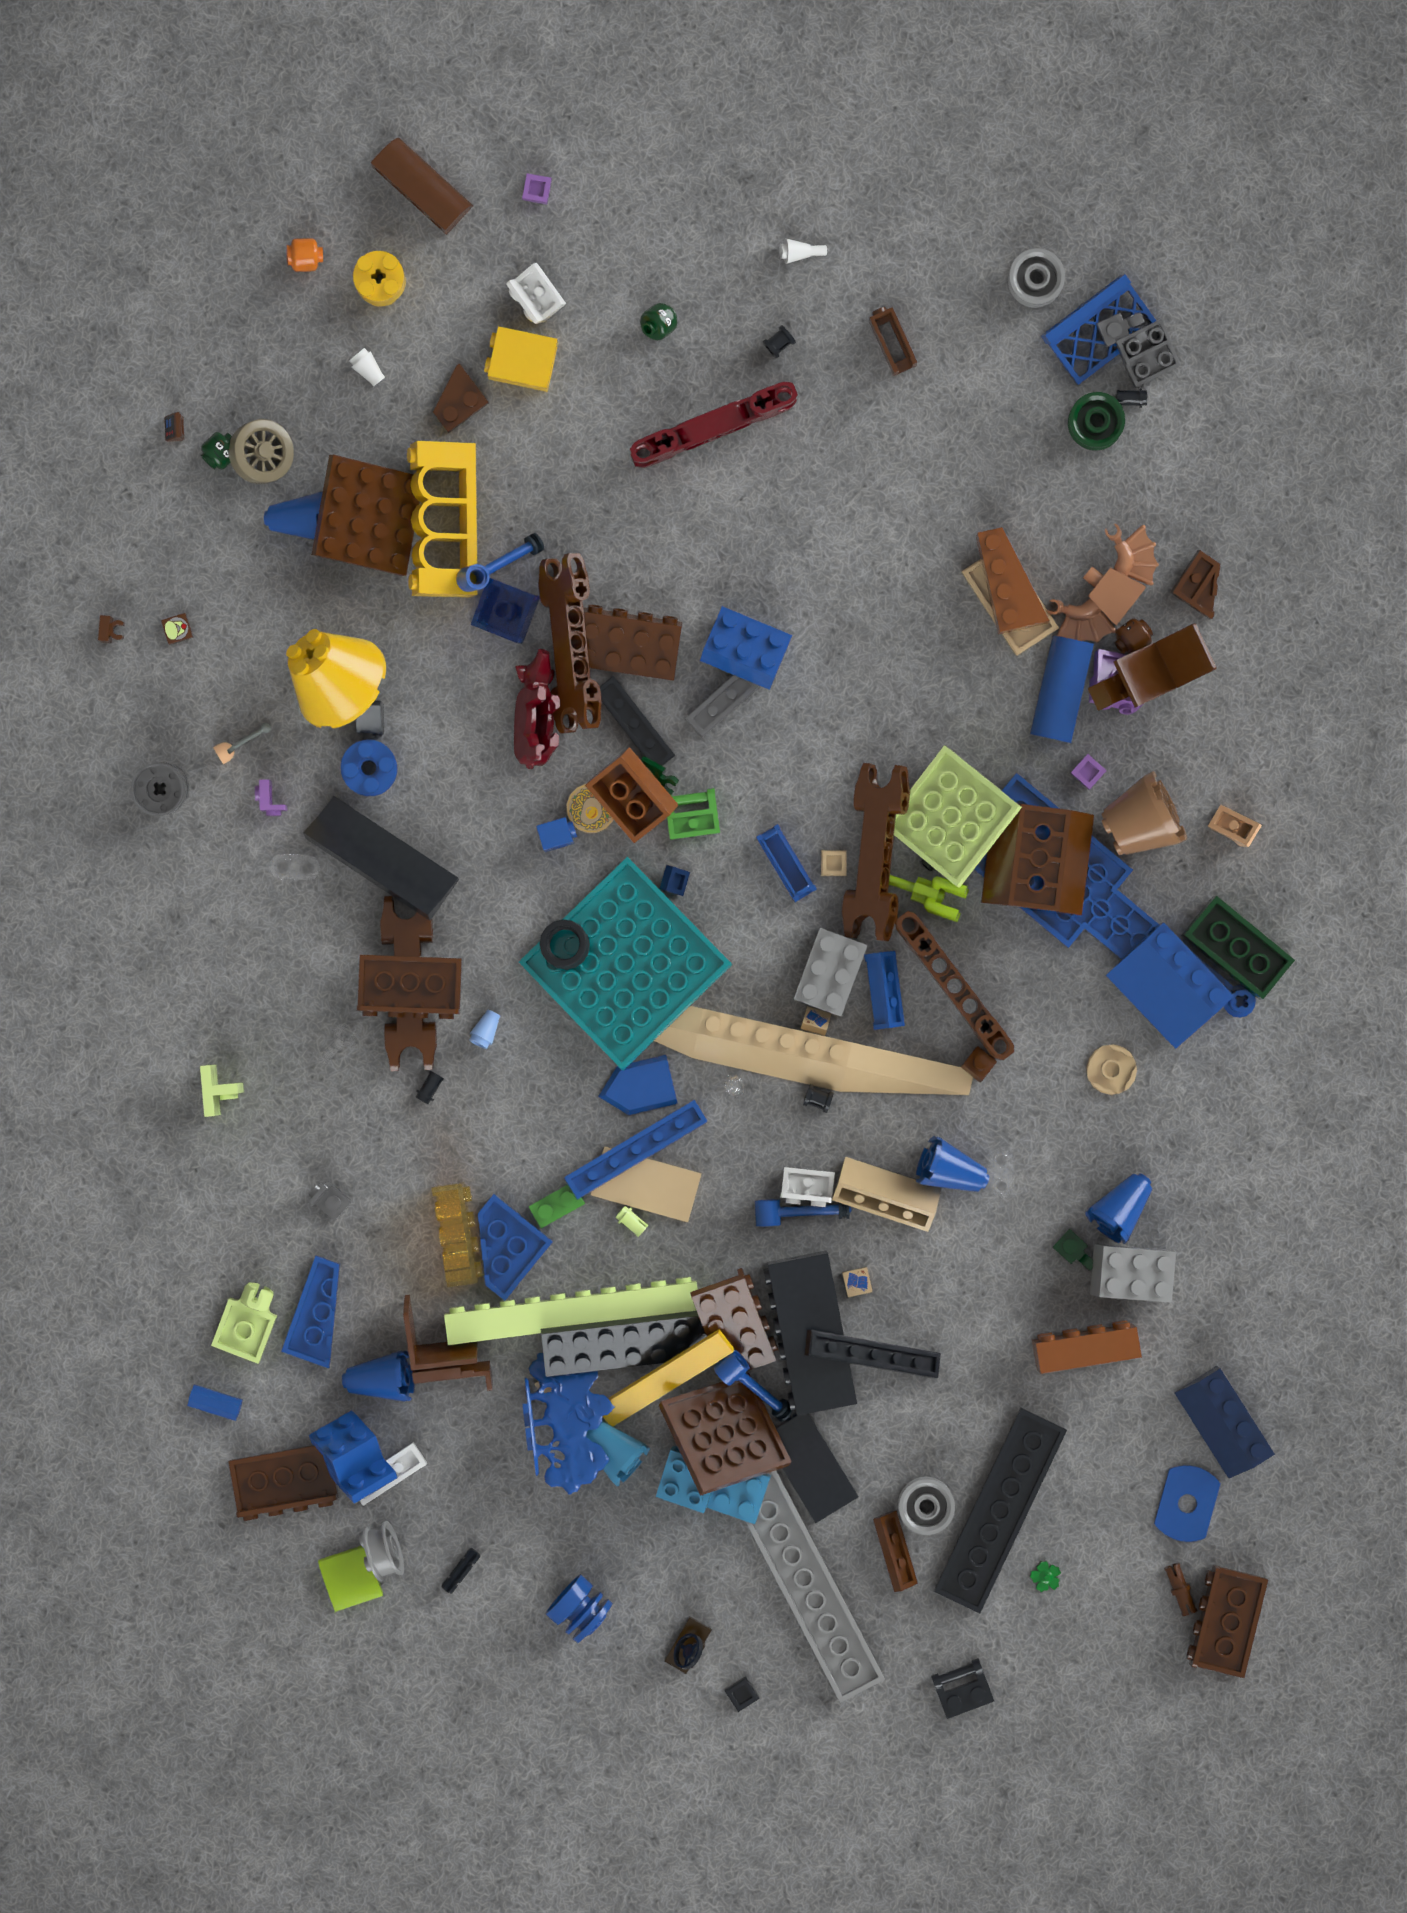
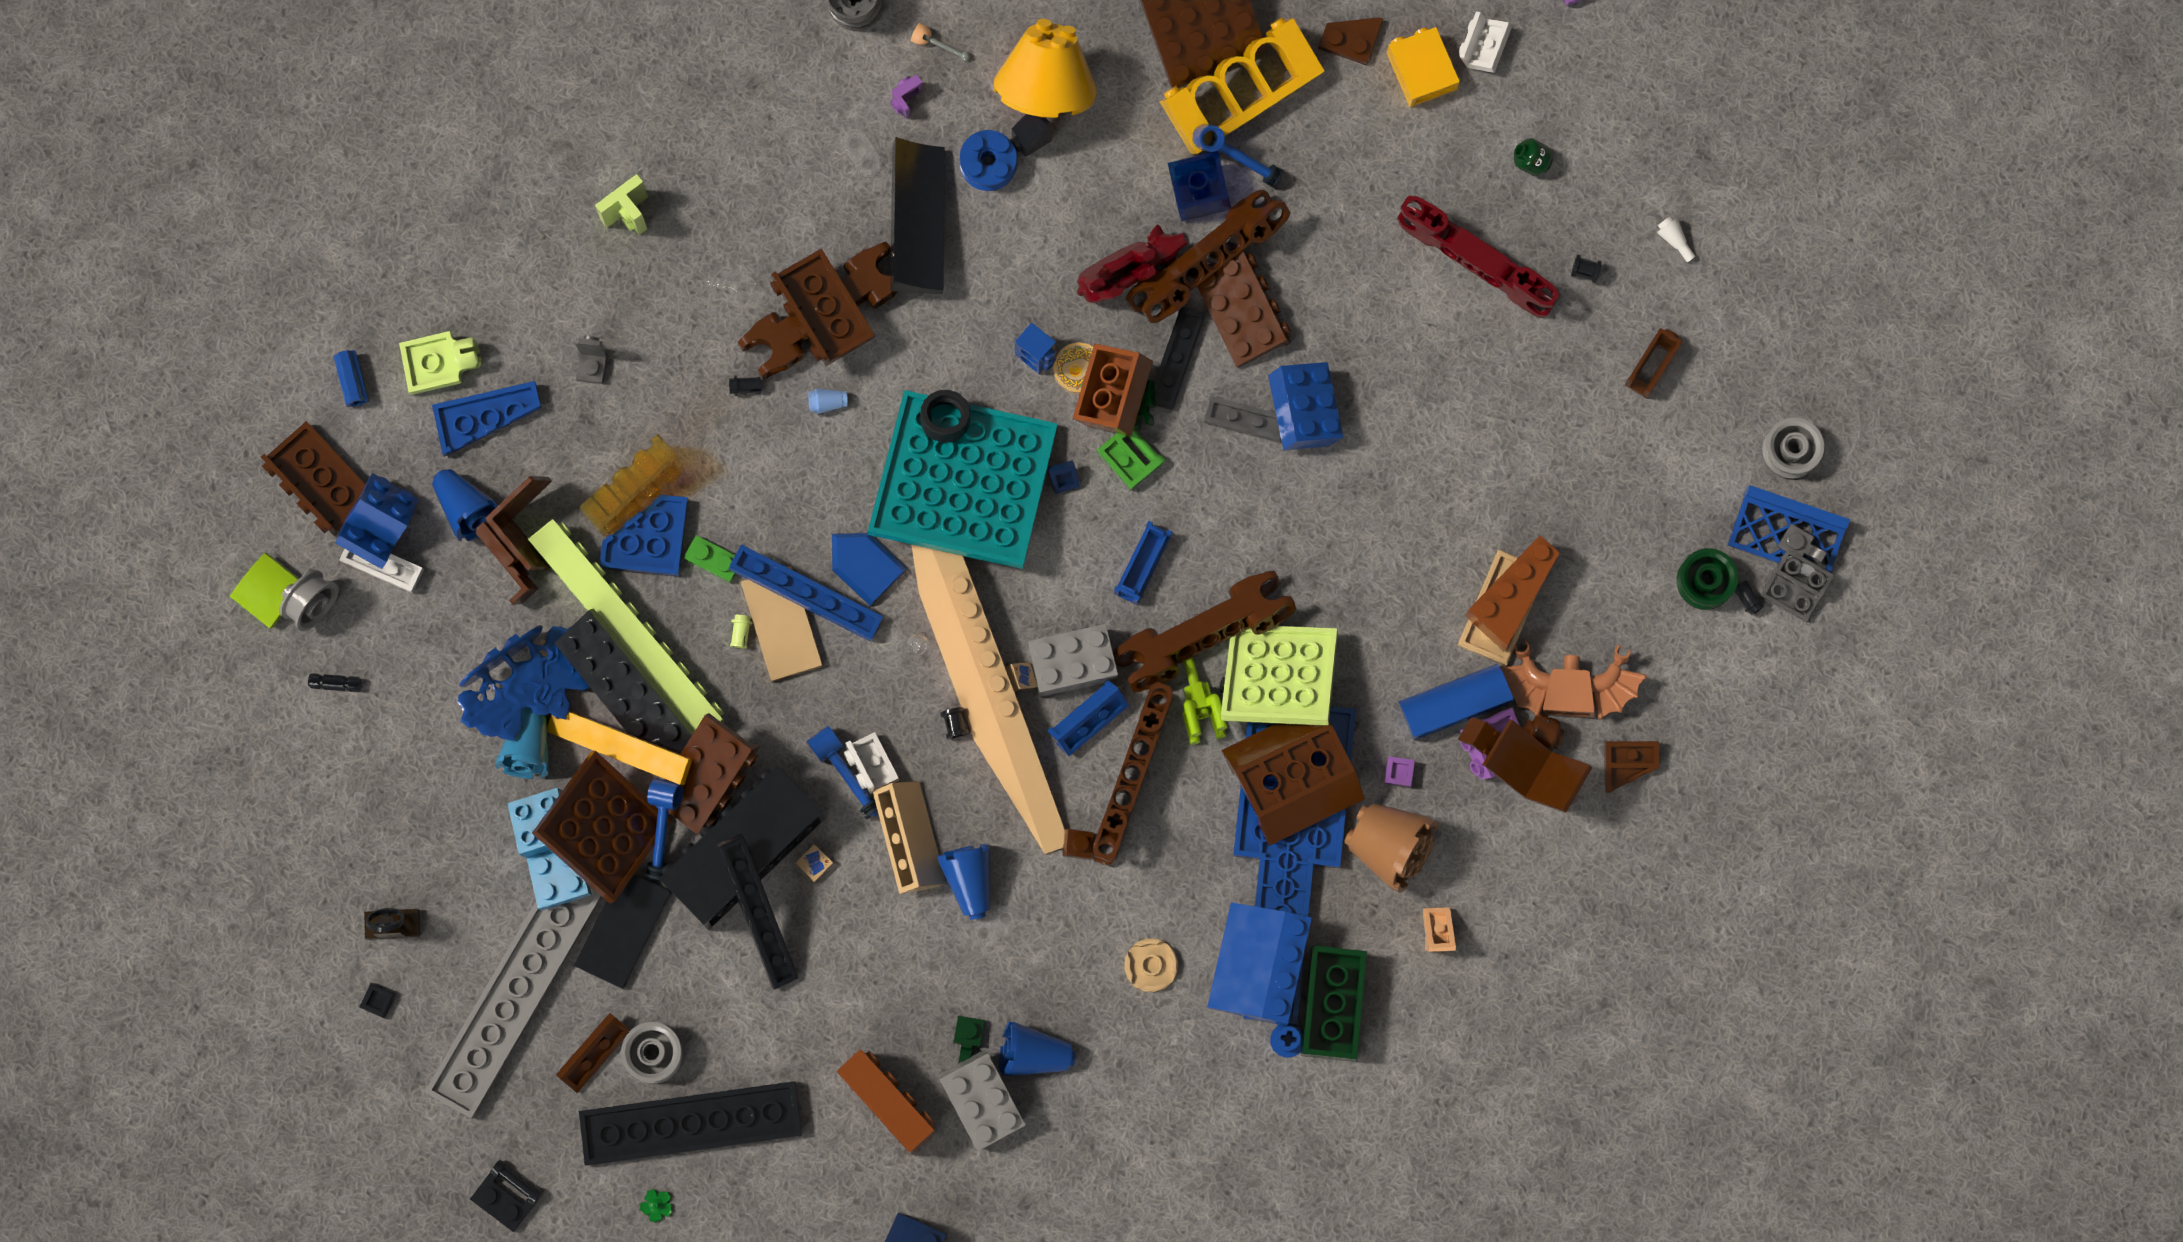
camera: 55 degrees right, 10 degrees down
(579, 1608) = (364, 802): blue wheel -> none
(833, 863) = (1170, 604): tan tile -> none

